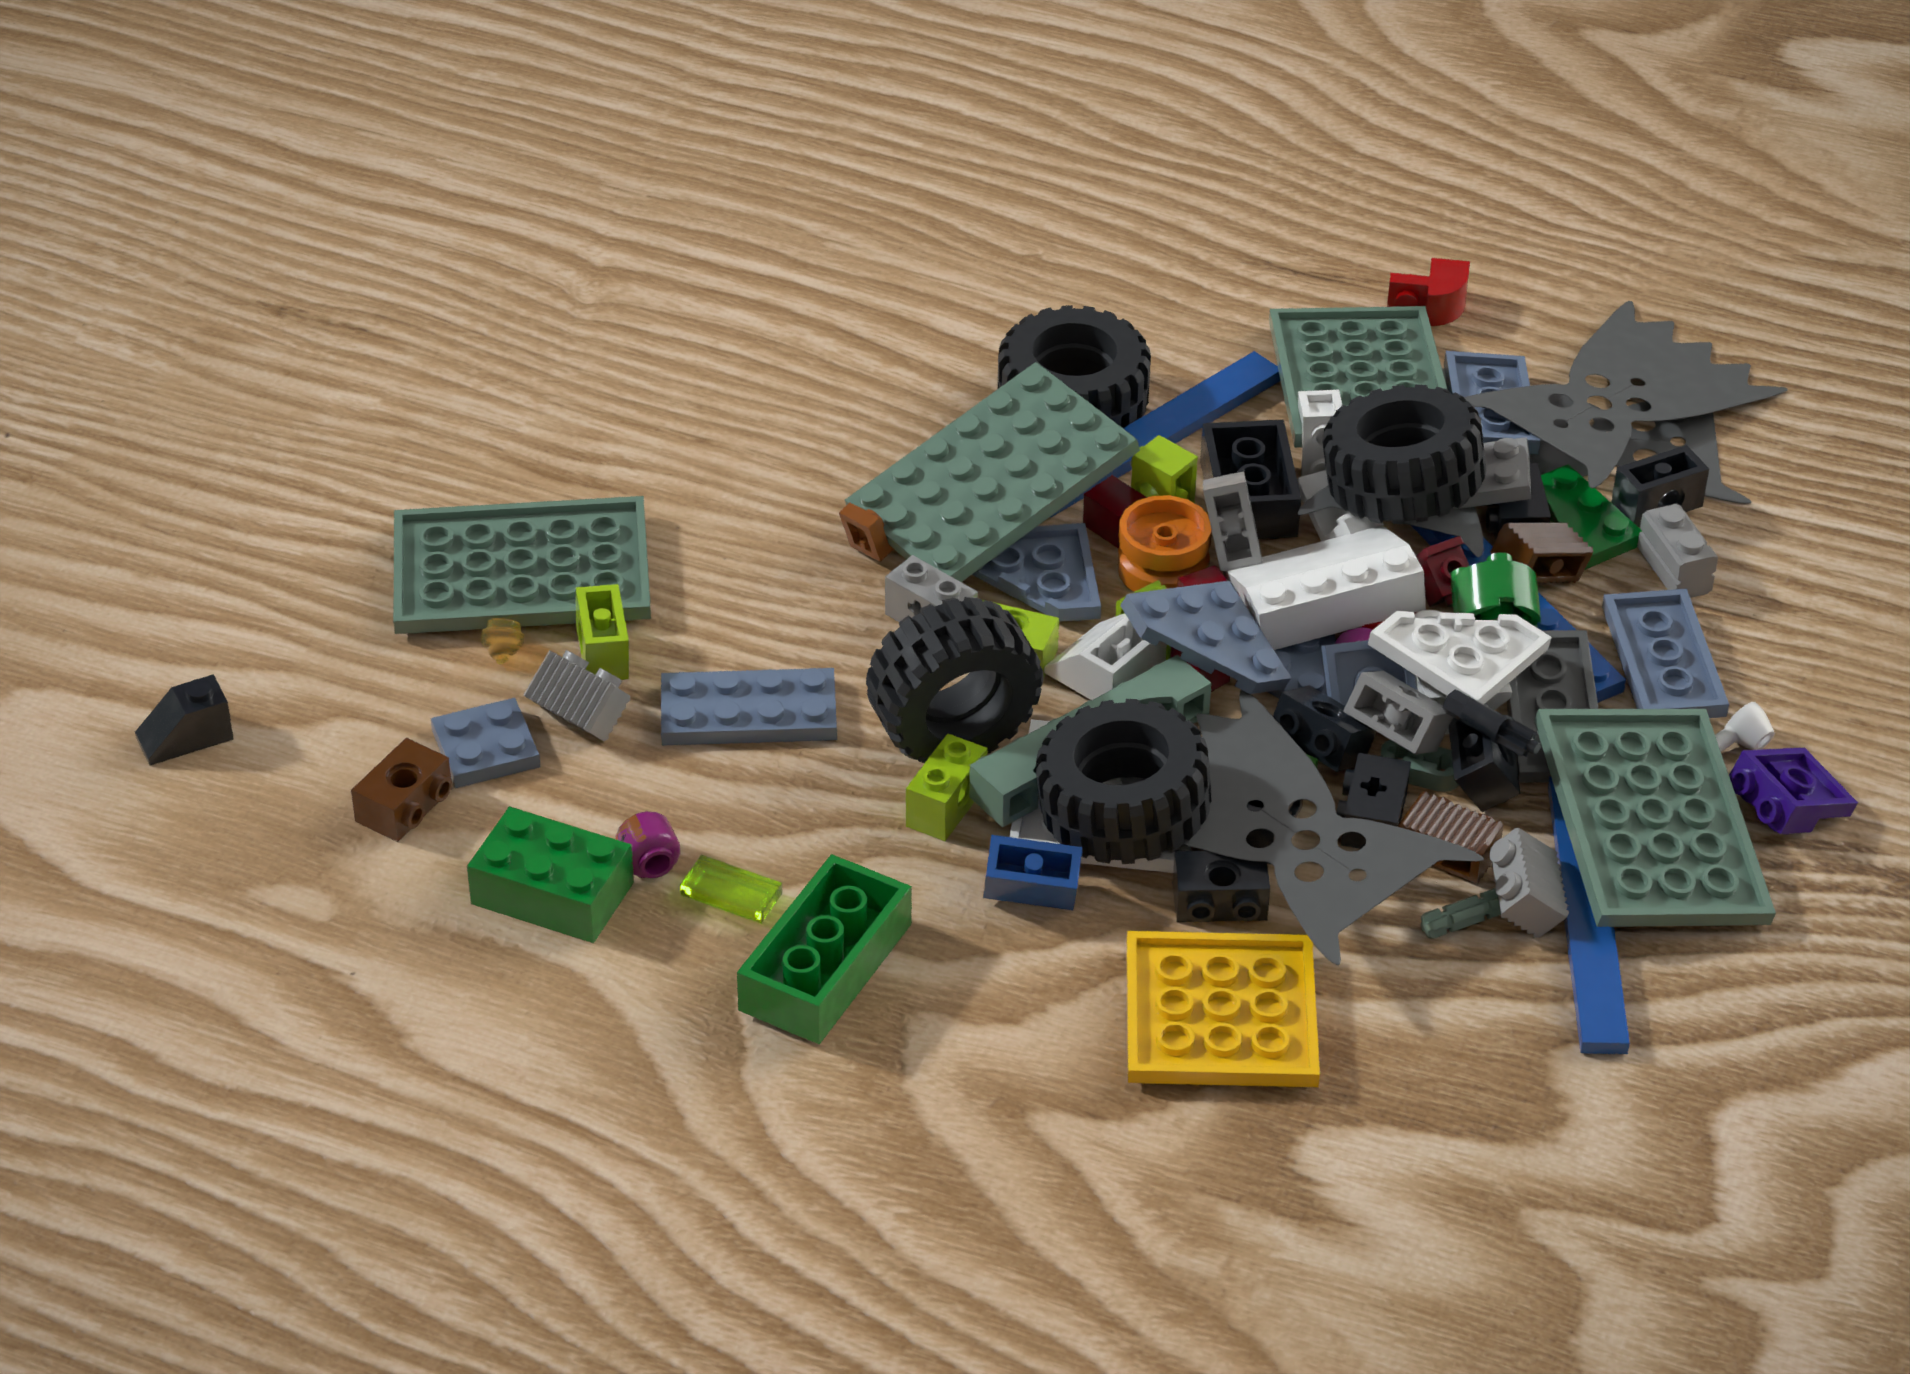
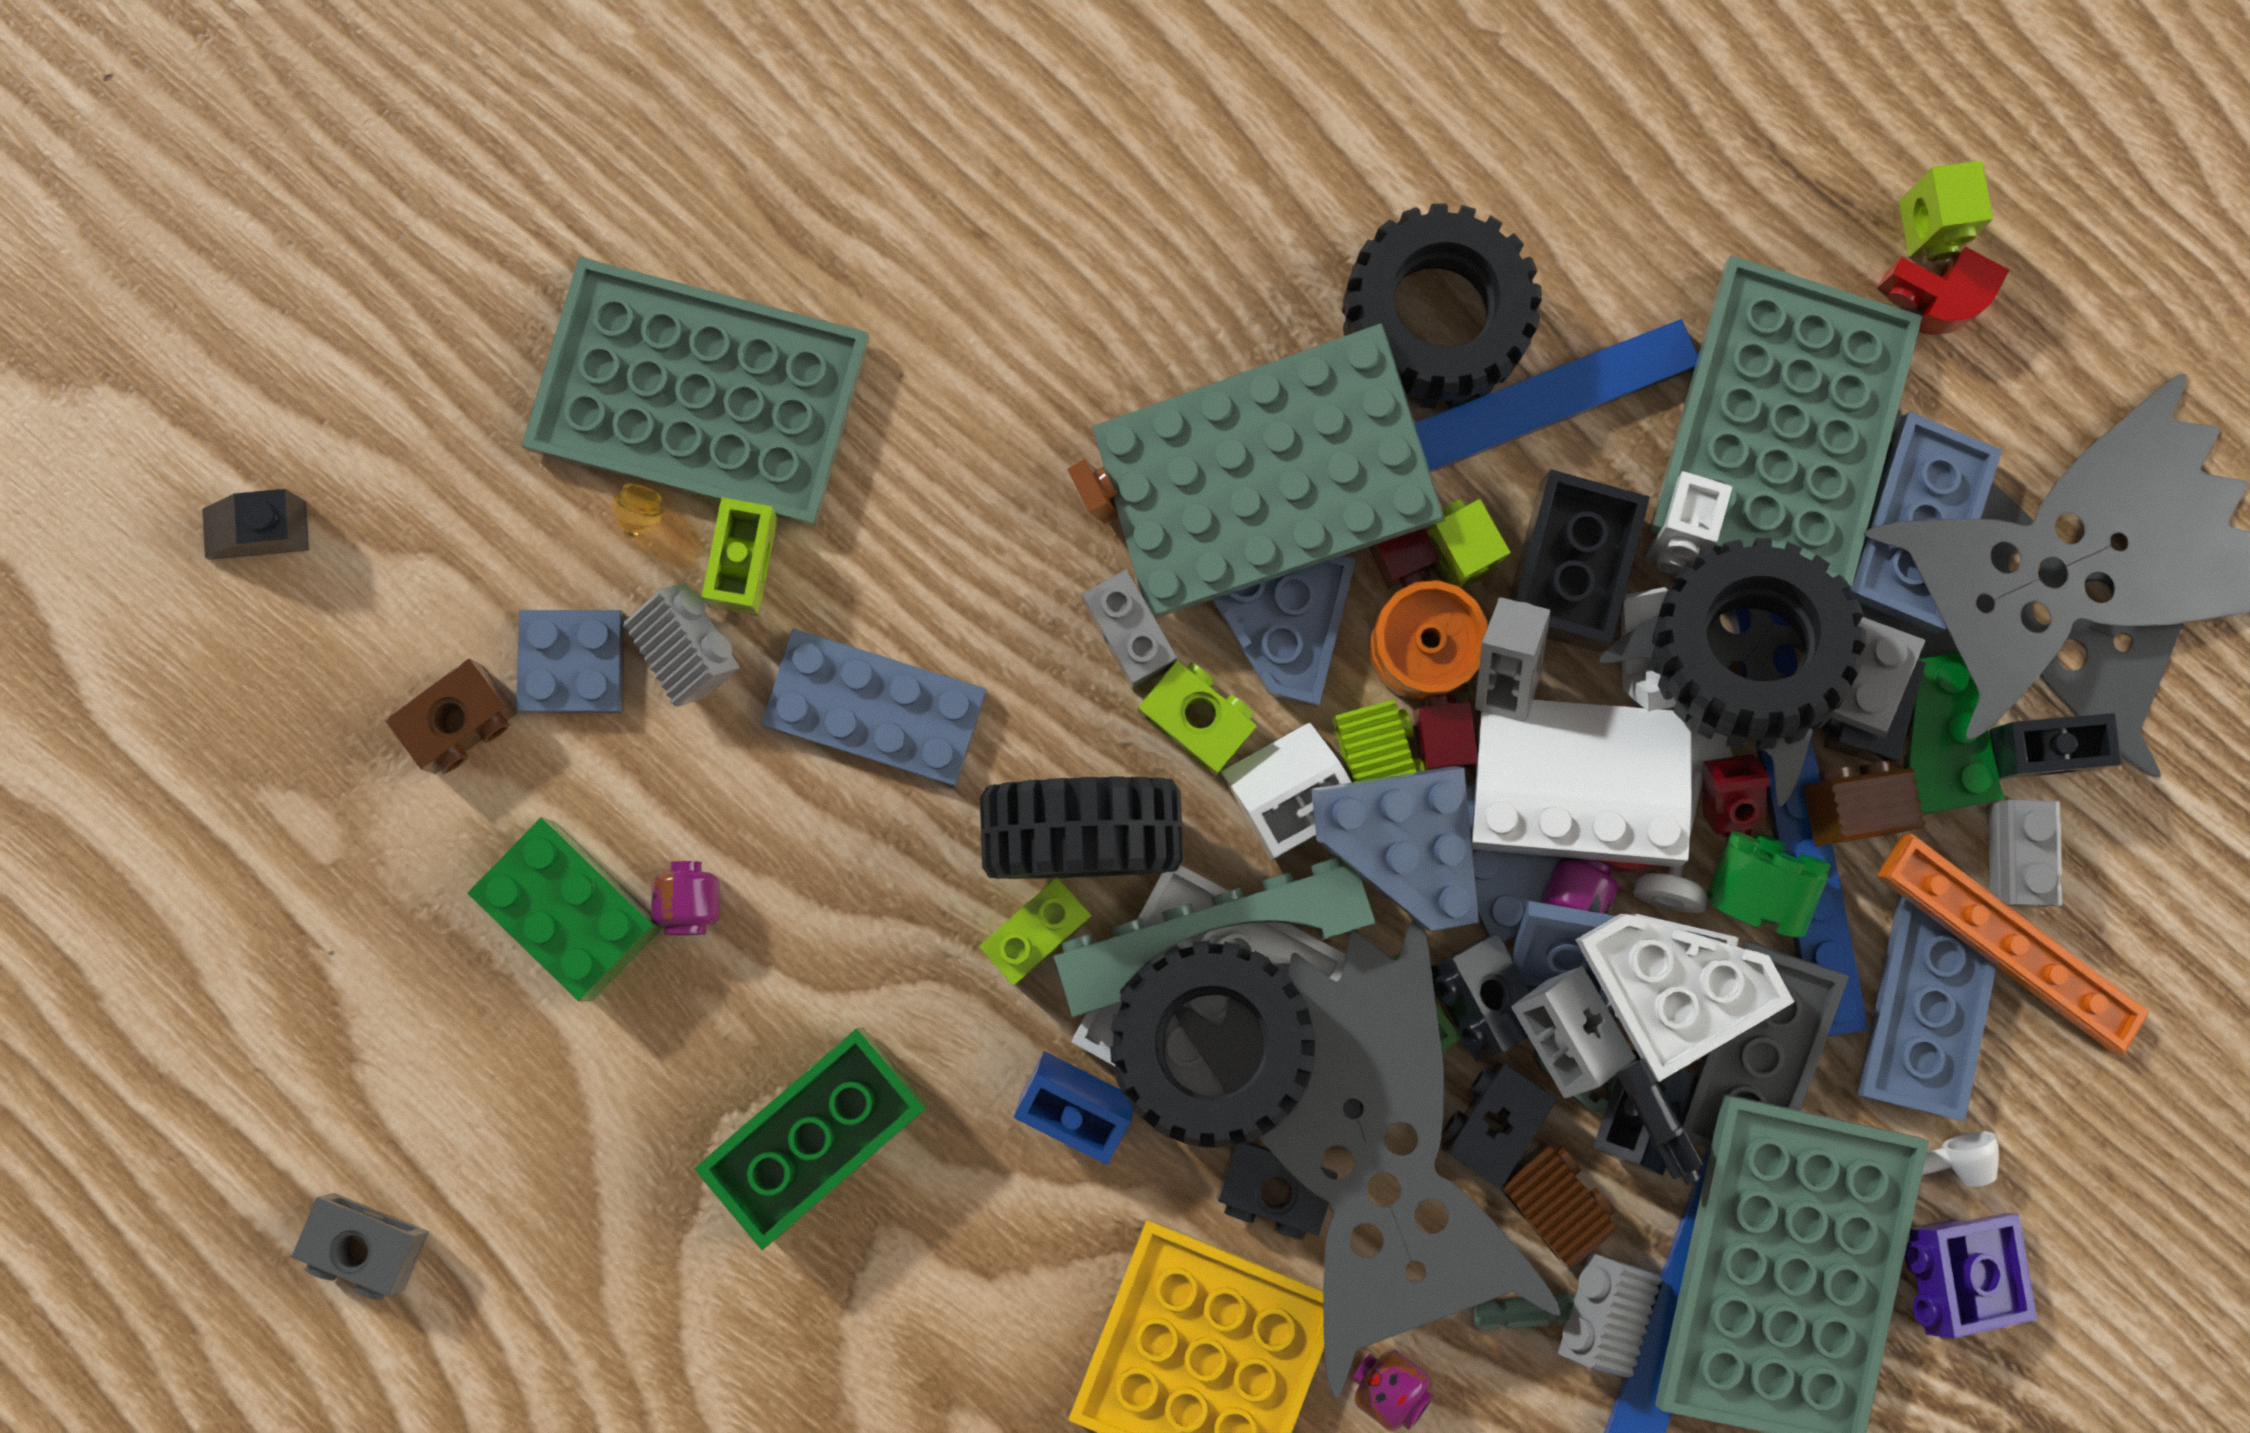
camera: 20 degrees right, 40 degrees up
(461, 1131) = (390, 1243): none -> dark grey brick
(731, 888) = (758, 984): clear neon green tile -> none
(1384, 980) = (1392, 1390): none -> magenta head
(1405, 238) = (1945, 210): none -> lime brick
(1700, 596) = (2012, 944): none -> orange tile

